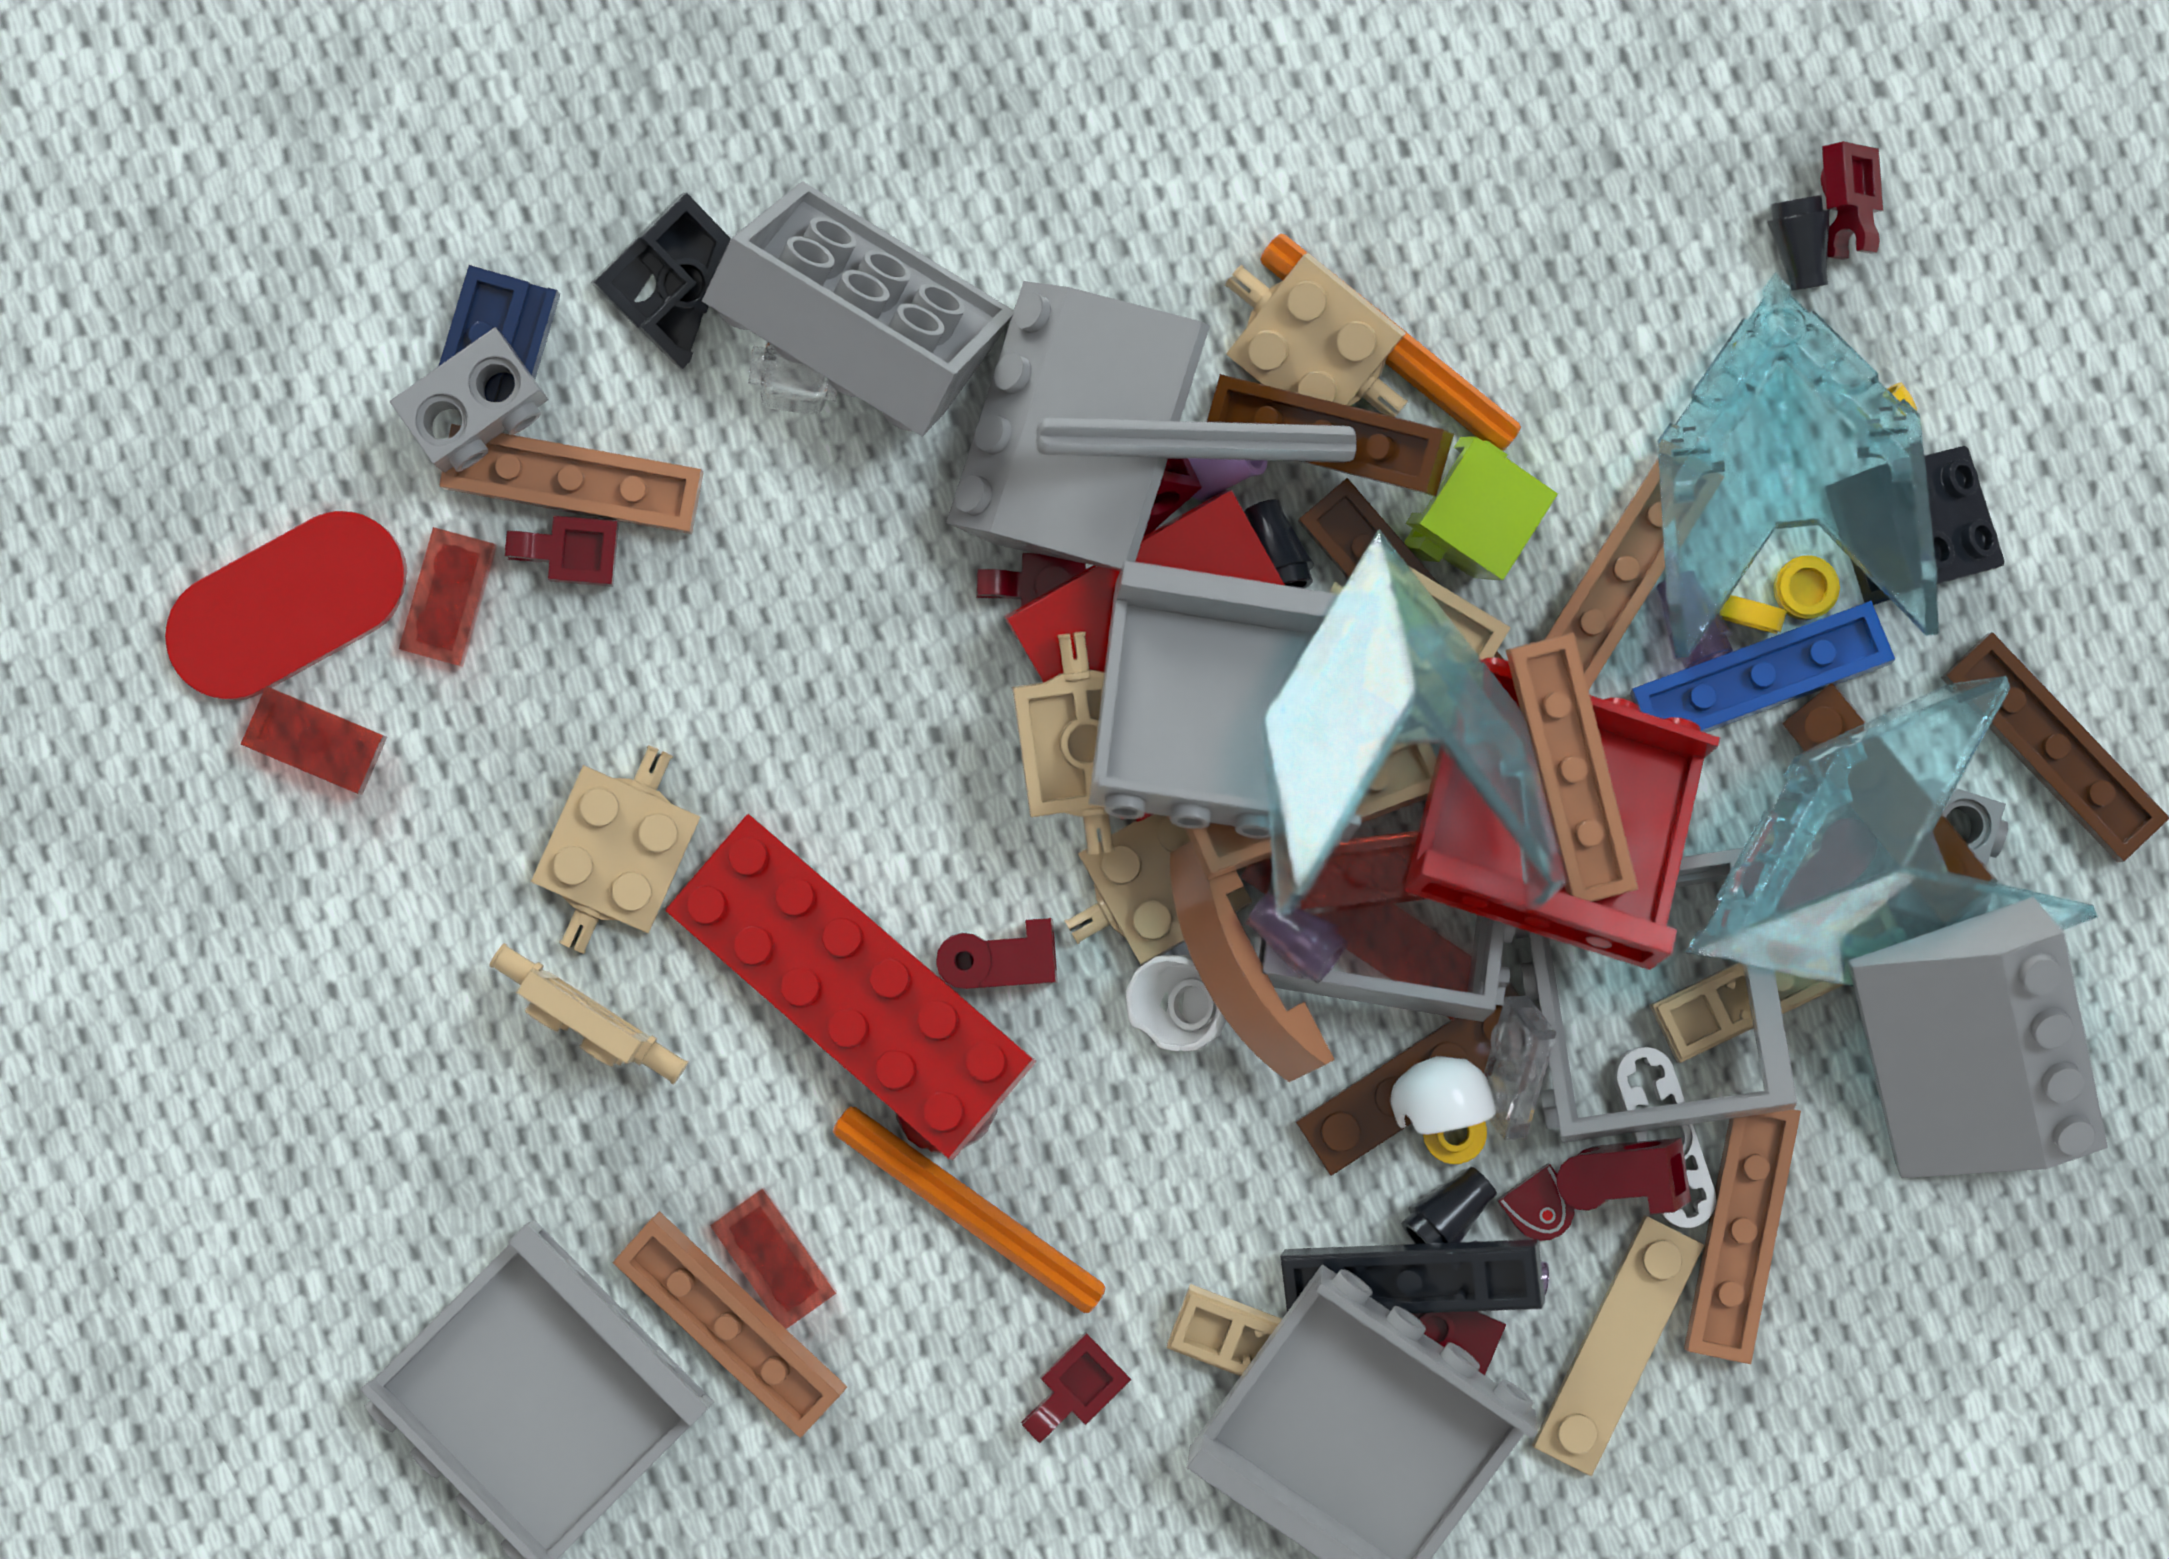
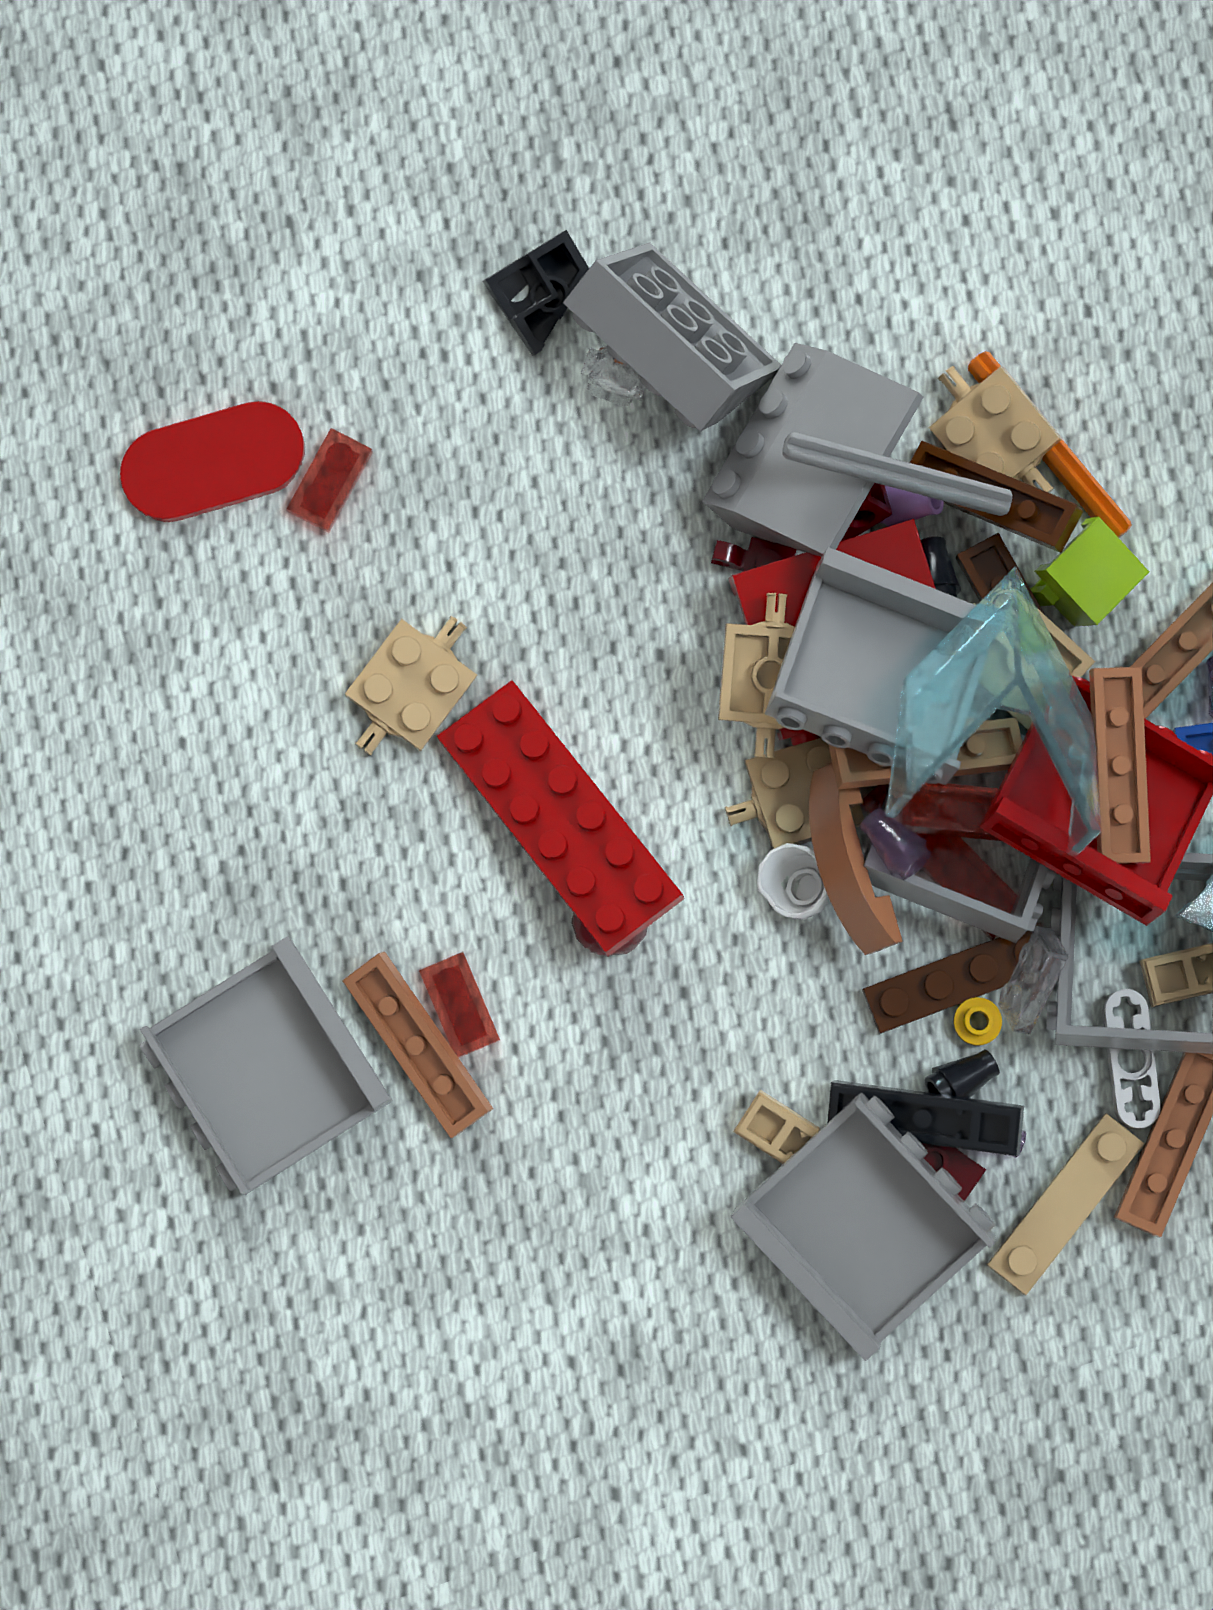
camera: 10 degrees right, 5 degrees down
(314, 740) = (211, 560): clear red plate -> none
(461, 386) = (373, 330): light grey brick -> none
(515, 308) = (406, 305): dark blue plate -> none
(563, 1006) = (375, 810): tan plate -> none
(576, 551) = (430, 466): dark red plate -> none
(582, 482) = (438, 415): nougat plate -> none
(969, 1209) = (610, 1000): orange axle -> none
(979, 963) = (673, 825): dark red leg -> none
(1081, 1384) = (663, 1143): dark red plate -> none
(1442, 1096) = (975, 985): white hair -> none
(1537, 1206) = (1030, 1088): dark red tile -> none
(1627, 1171) = (1080, 1074): dark red leg -> none

